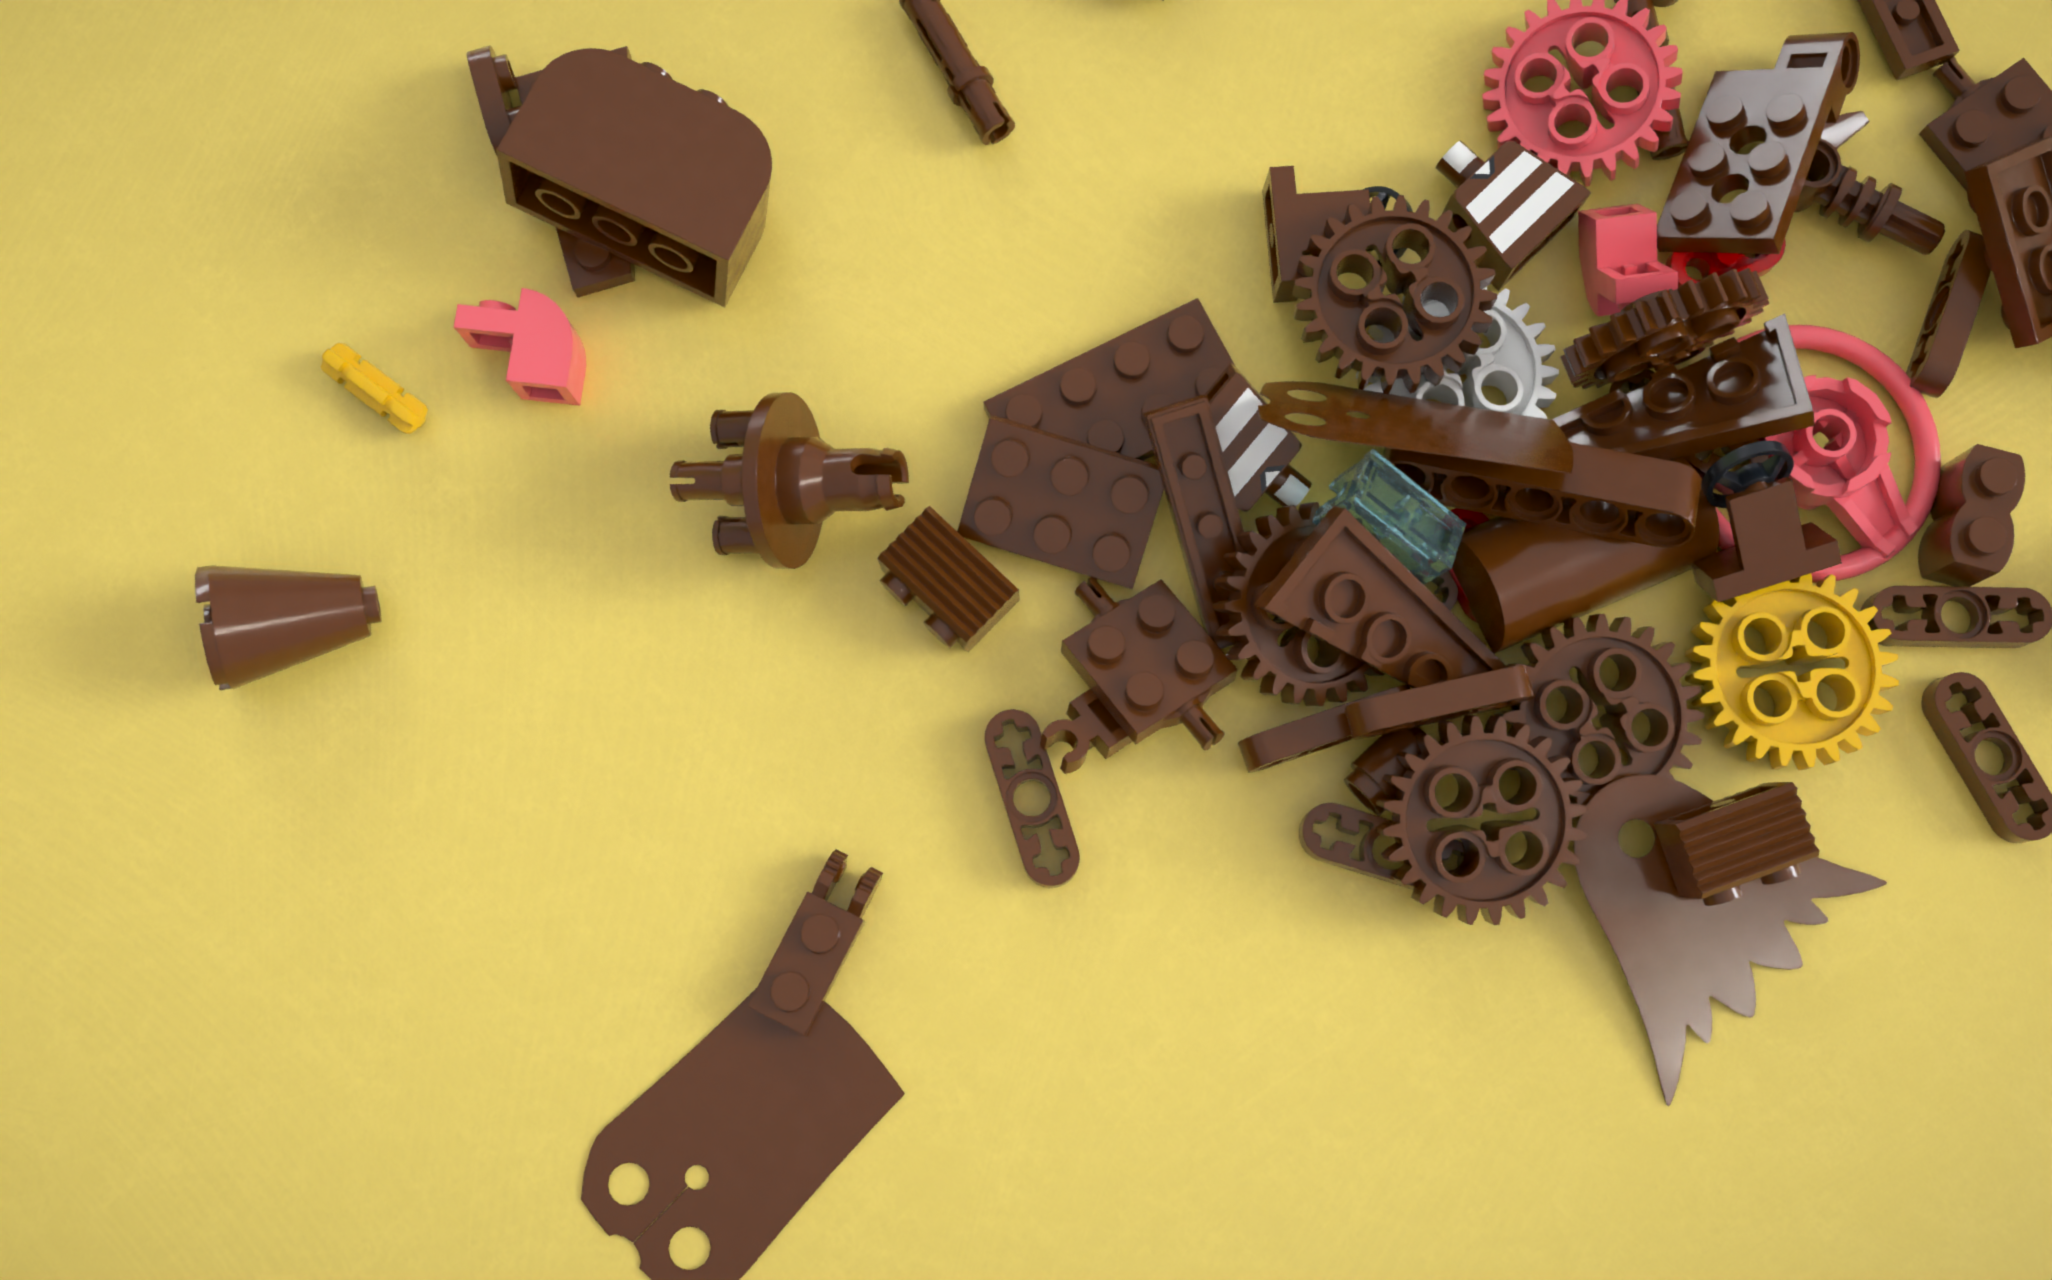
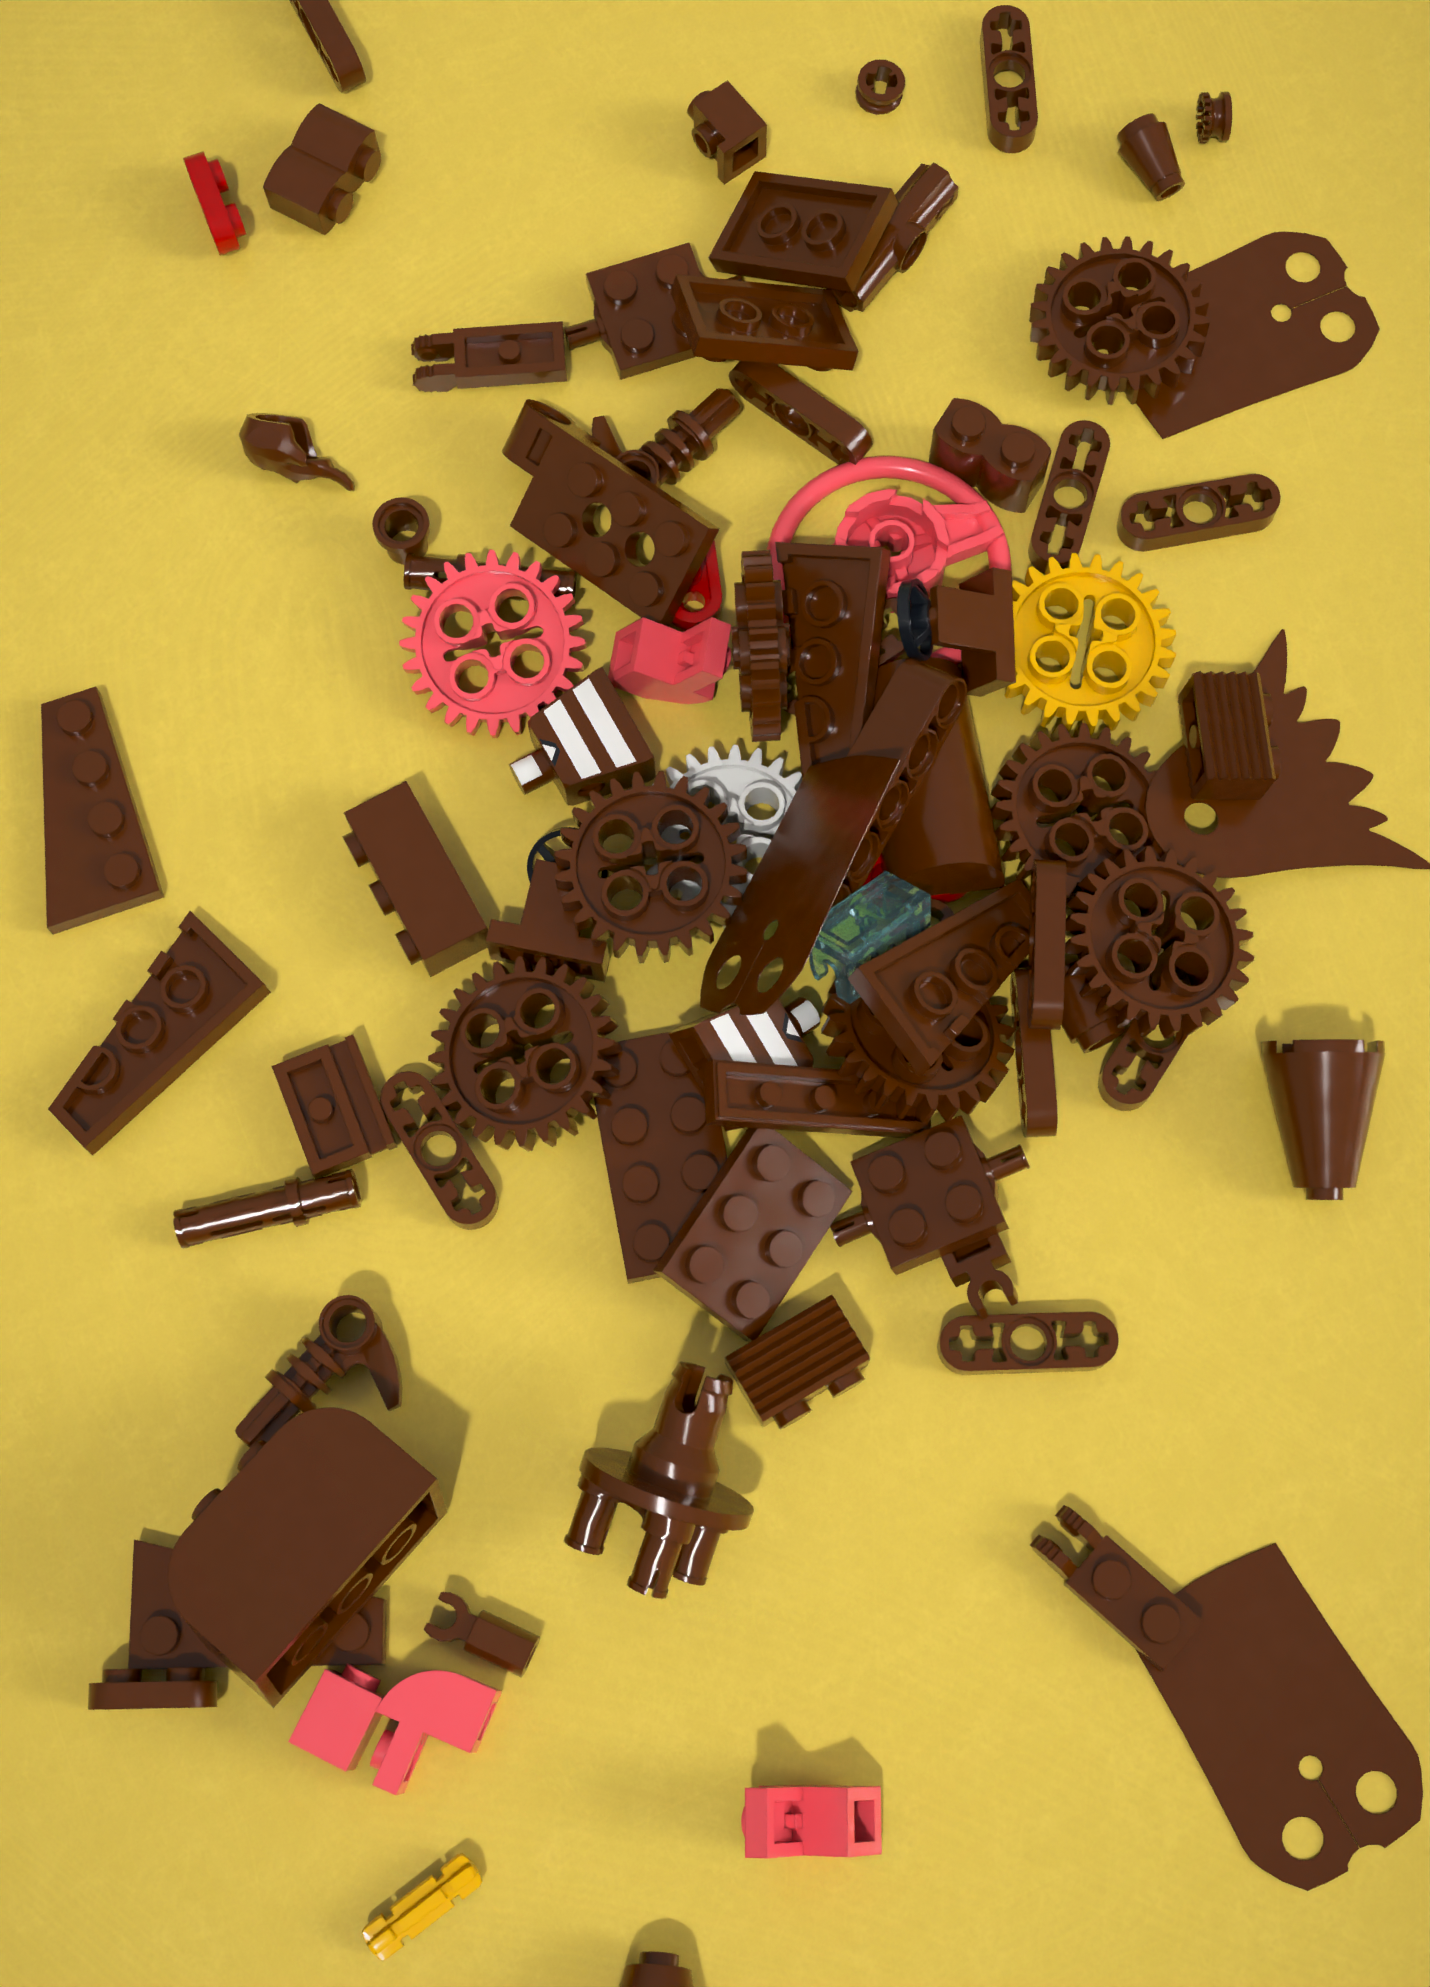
camera: 75 degrees left, 5 degrees down
(512, 259) = (340, 1717): none -> coral brick
(524, 703) = (812, 1821): none -> coral brick
(621, 372) = (487, 1636): none -> reddish brown bar
(834, 157) = (318, 1363): none -> reddish brown piece
(1070, 90) = (334, 1107): none -> reddish brown plate
(1097, 177) = (430, 1106): none -> reddish brown beam
(1215, 215) = (535, 1103): none -> reddish brown gear
(1315, 90) = (415, 880): none -> reddish brown brick
(1358, 1036) = (1323, 1108): none -> reddish brown cone

